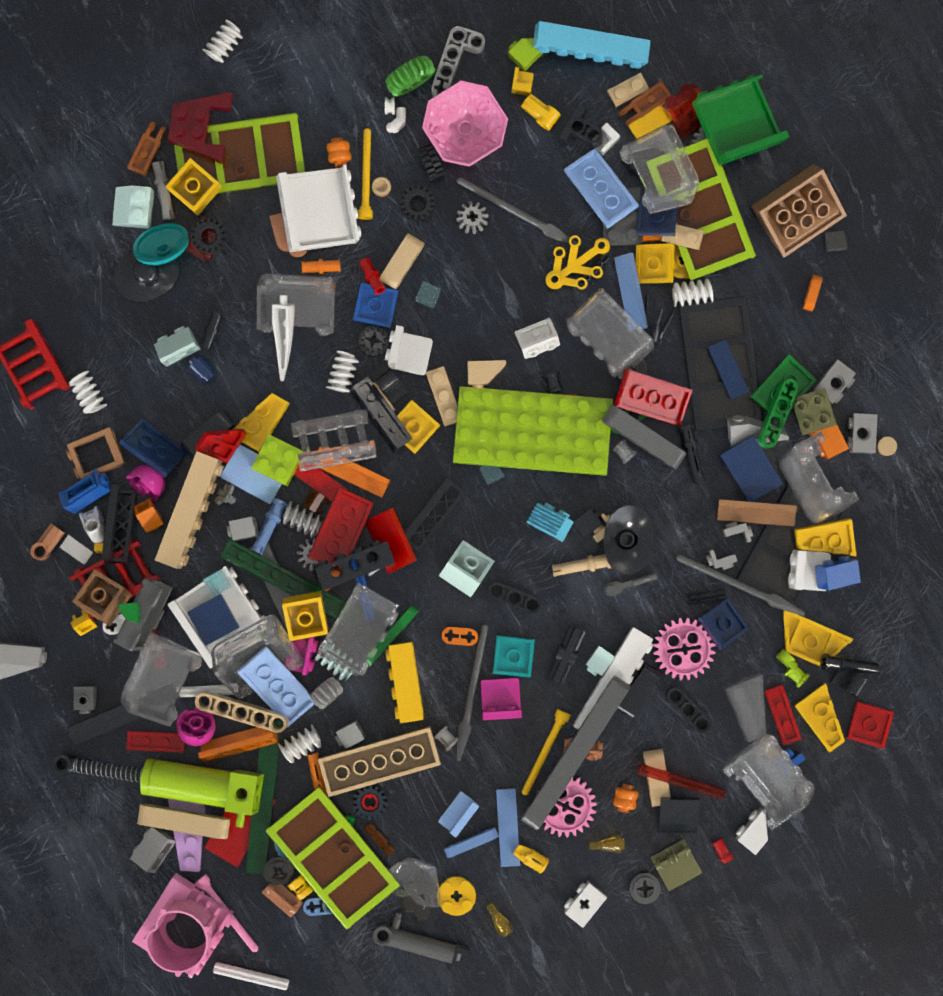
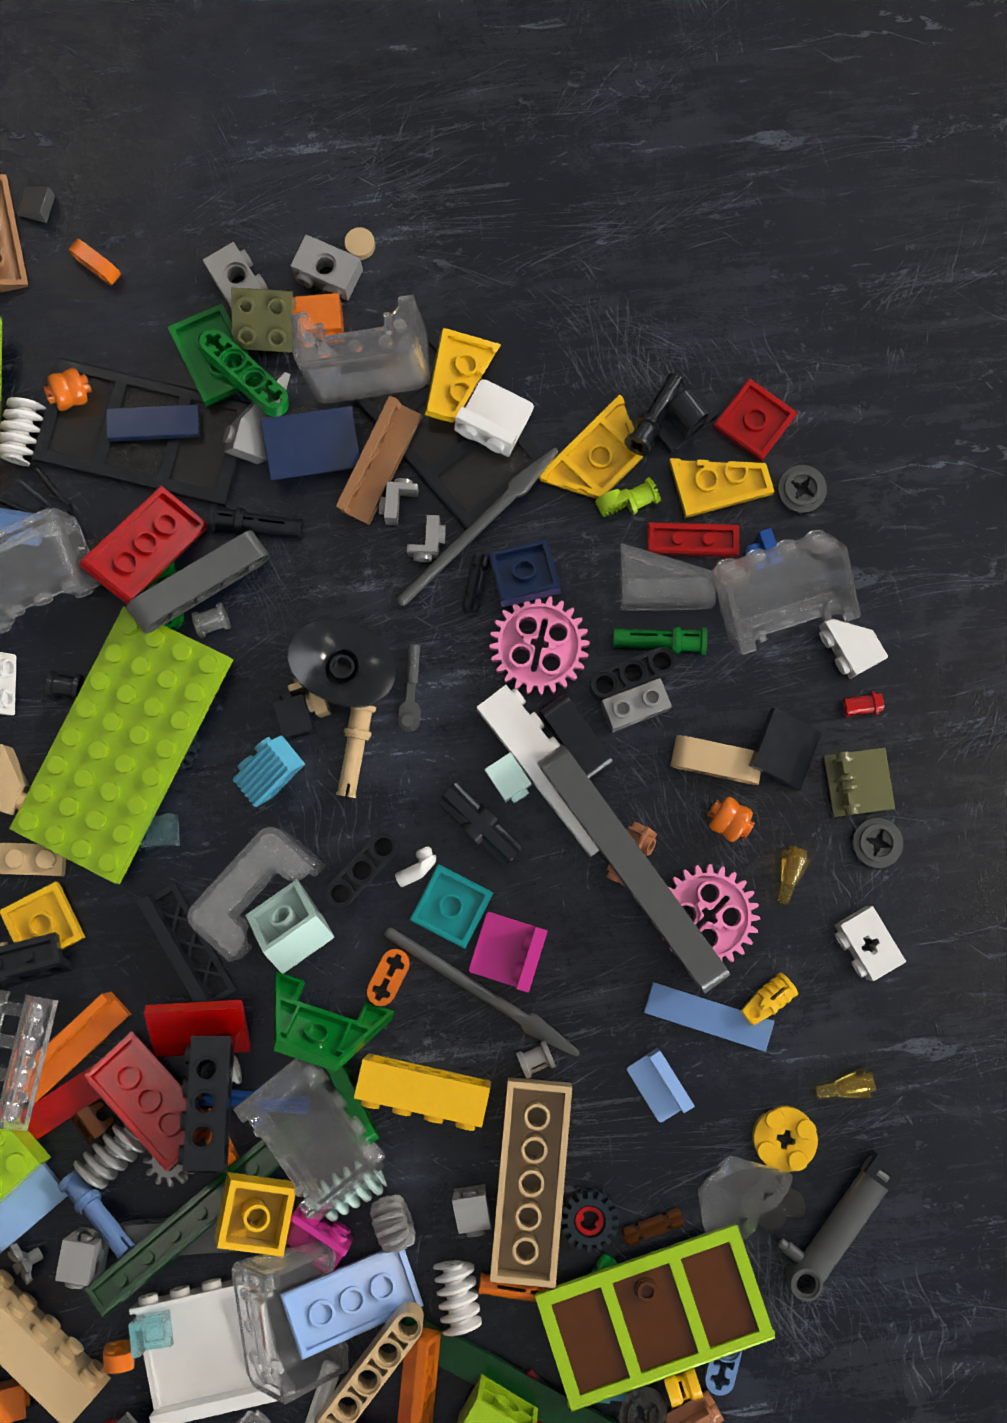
camera: 65 degrees left, 5 degrees down
(198, 570) = (118, 1357): none -> orange beam
(213, 619) = (207, 1360): dark blue tile -> none
(415, 610) = (317, 1033): none -> green wing
(462, 526) = (219, 908): none -> clear windscreen
(471, 842) = (711, 1083): medium blue beam -> none
(526, 629) = (418, 870): none -> white arm
(561, 718) = (573, 870): yellow piece -> none
(670, 718) = (635, 705): none -> light grey brick
(681, 781) = (736, 725): clear red axle -> none
(718, 727) = (675, 640): none -> green pin
(728, 312) = (67, 389): none -> orange piece
(837, 573) = (515, 377): brick -> none
(842, 776) = (796, 476): none -> dark grey gear

